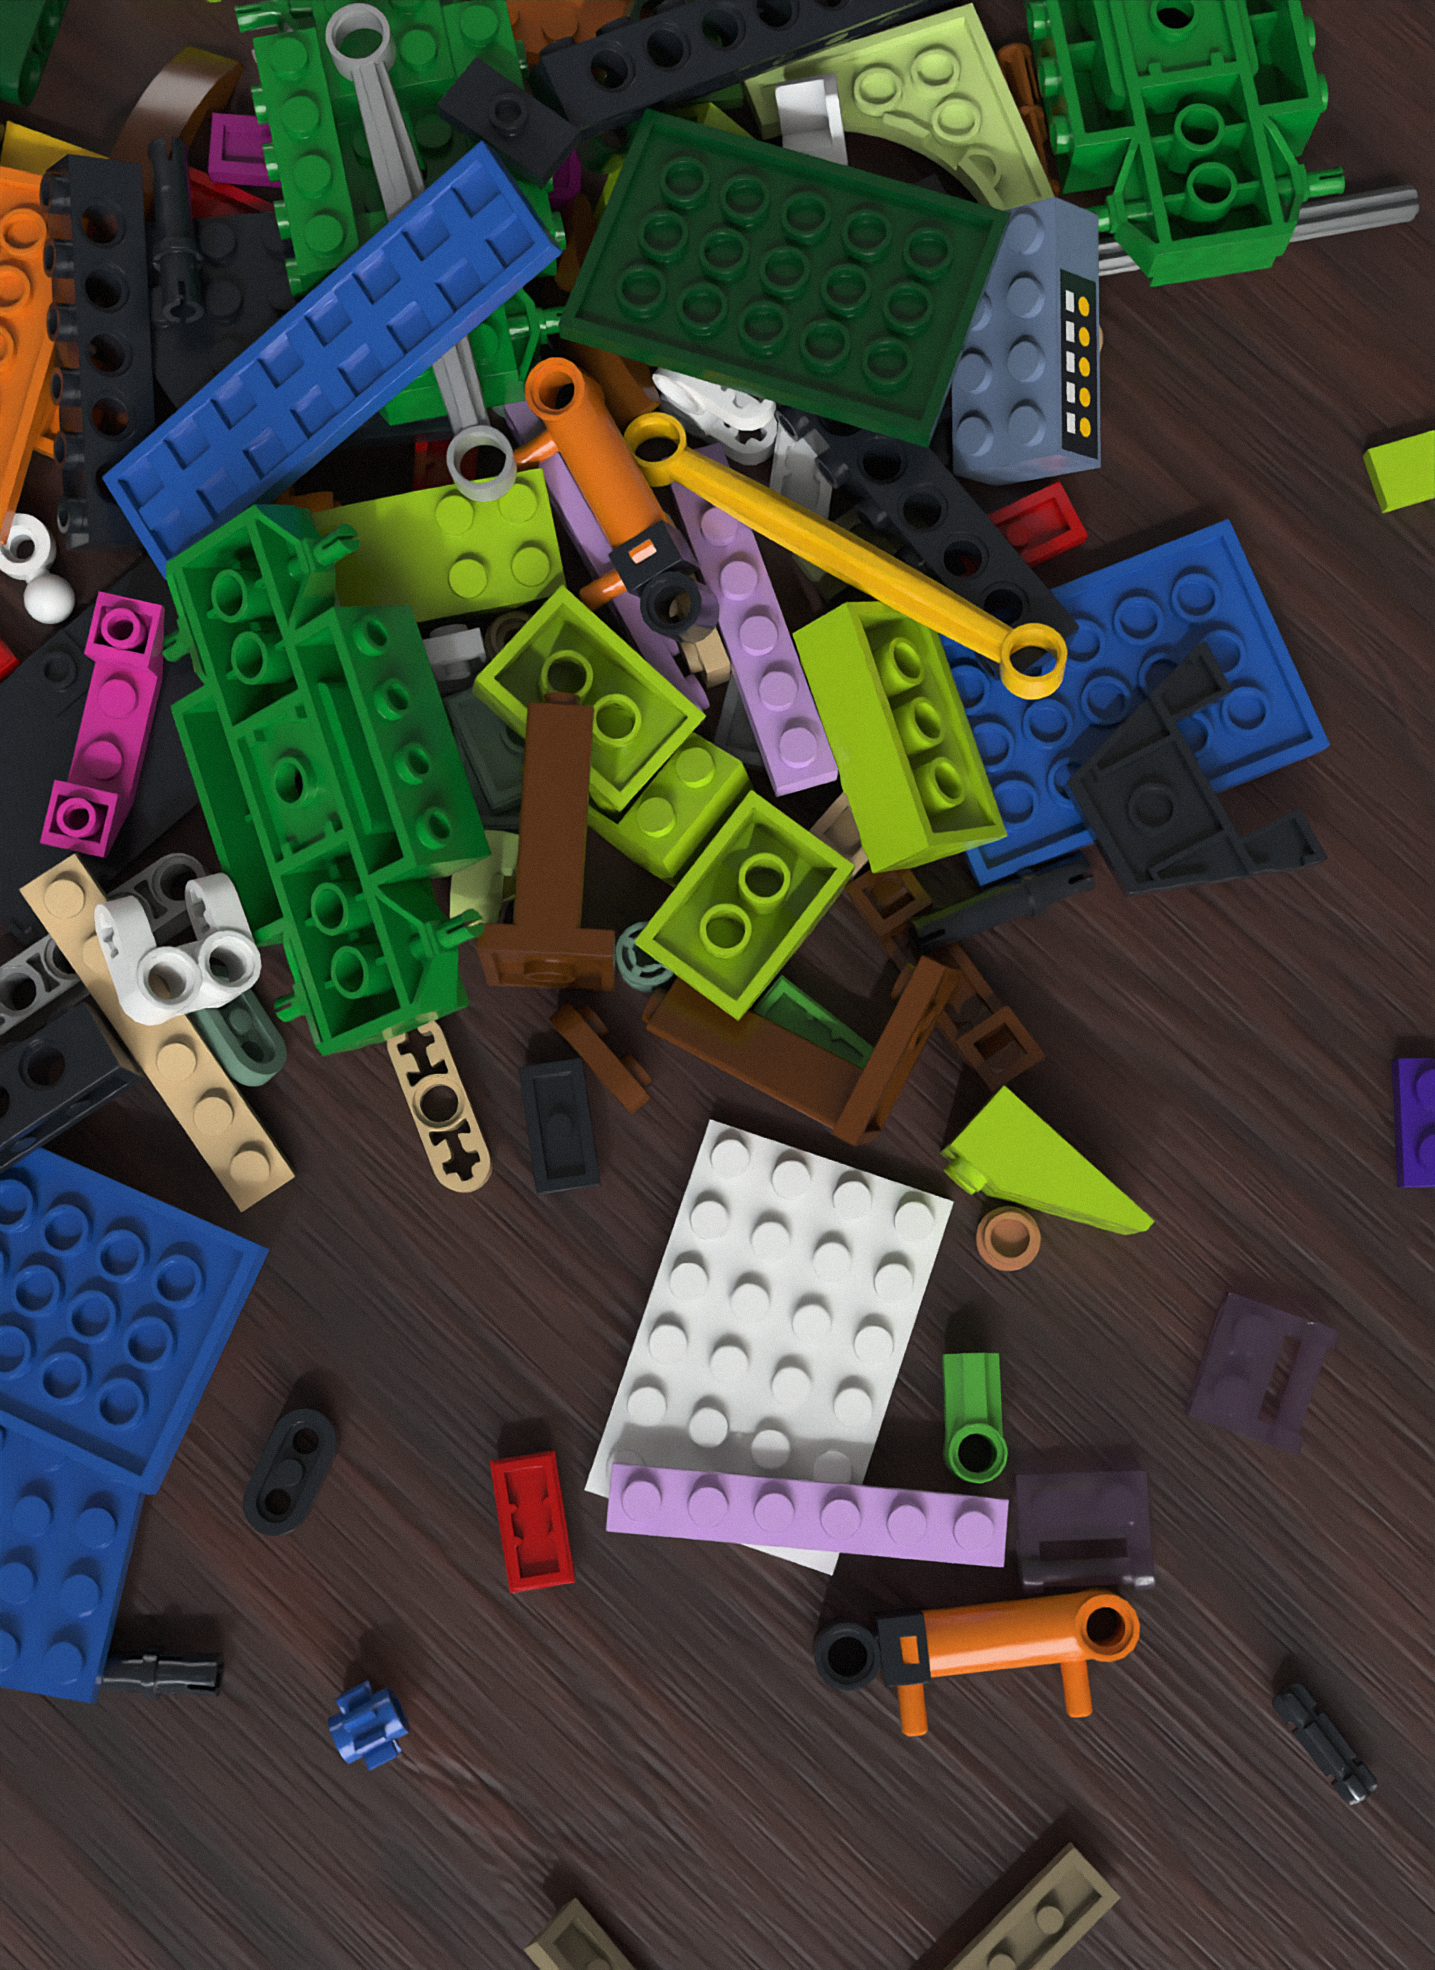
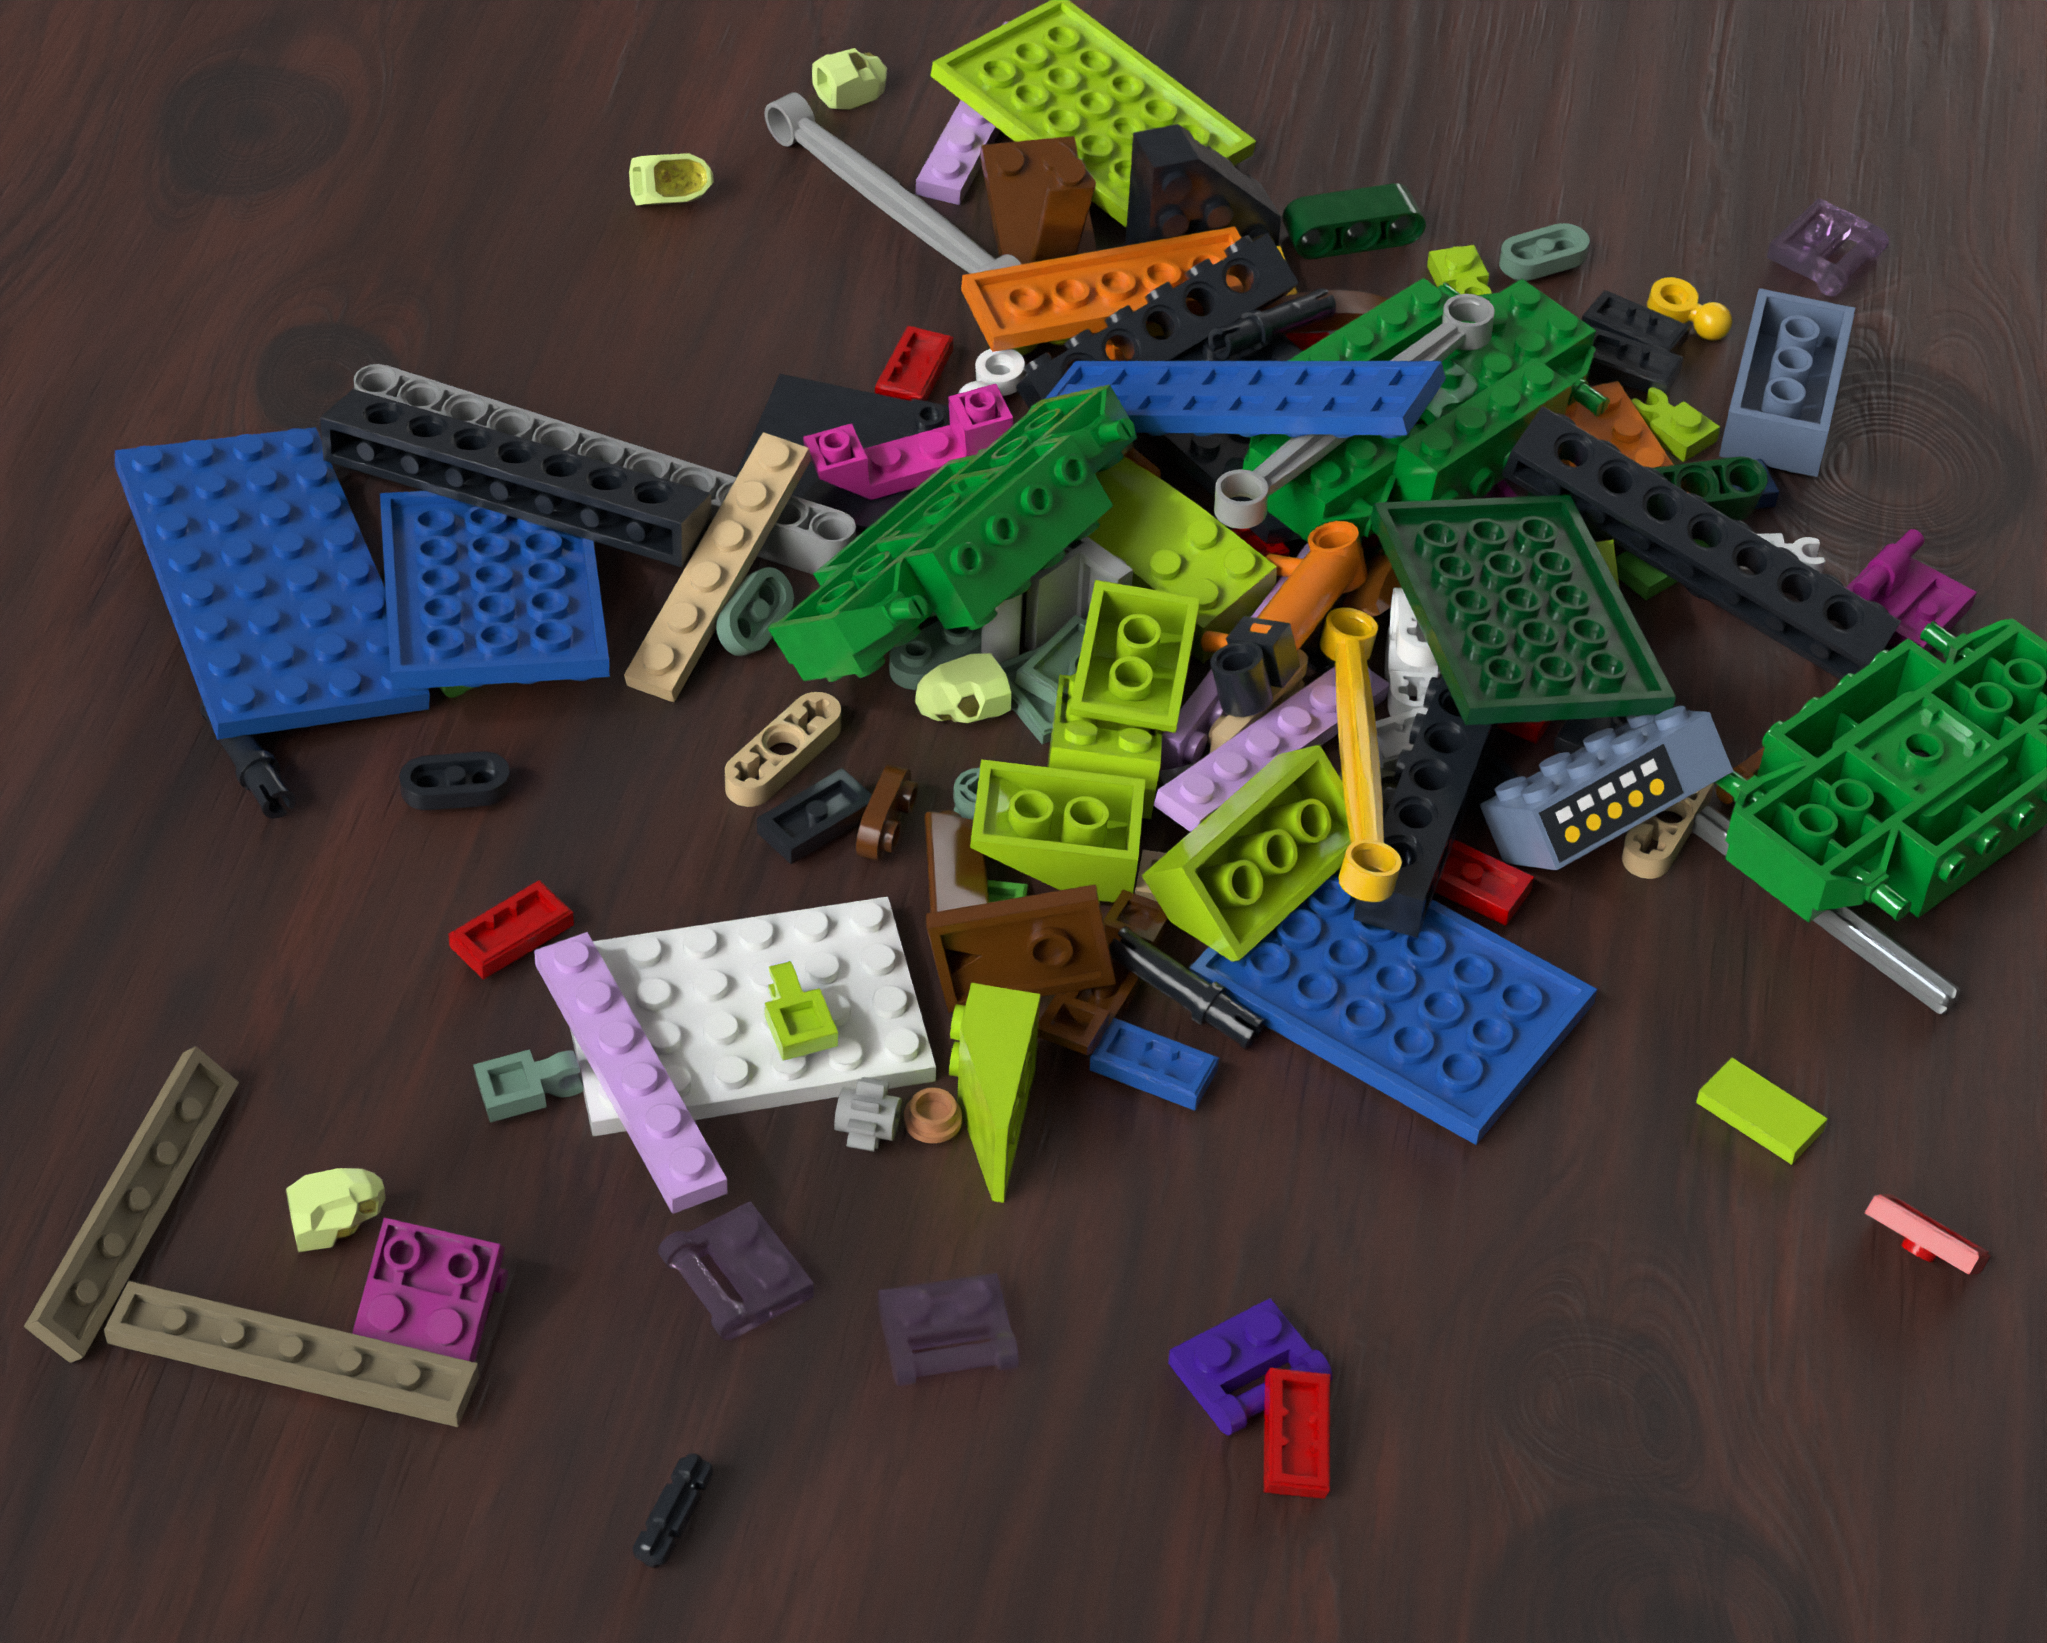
camera: 55 degrees right, 35 degrees down
(220, 934) = (775, 536): white piece -> none
(368, 1725) = (296, 896): blue gear -> none
(510, 121) = (1482, 409): black plate -> none
(546, 938) = (936, 679): reddish brown piece -> none
(743, 1623) = (518, 1084): none -> sand green plate
(803, 1891) = (332, 1205): none -> yellowish green rock
(812, 117) = (1665, 613): white panel -> none
(850, 1316) = (797, 1018): none -> lime plate
(924, 1644) = (570, 1195): orange piece -> none
(933, 92) = (1740, 671): yellowish green plate -> none
(961, 1847) = (430, 1289): none -> magenta plate
(973, 1407) = (760, 1154): bright green piece -> none
(984, 1306) = (867, 1114): none -> light grey gear
(1070, 987) = (1154, 1064): none -> blue plate
(1156, 808) = (1334, 1027): black wing -> none

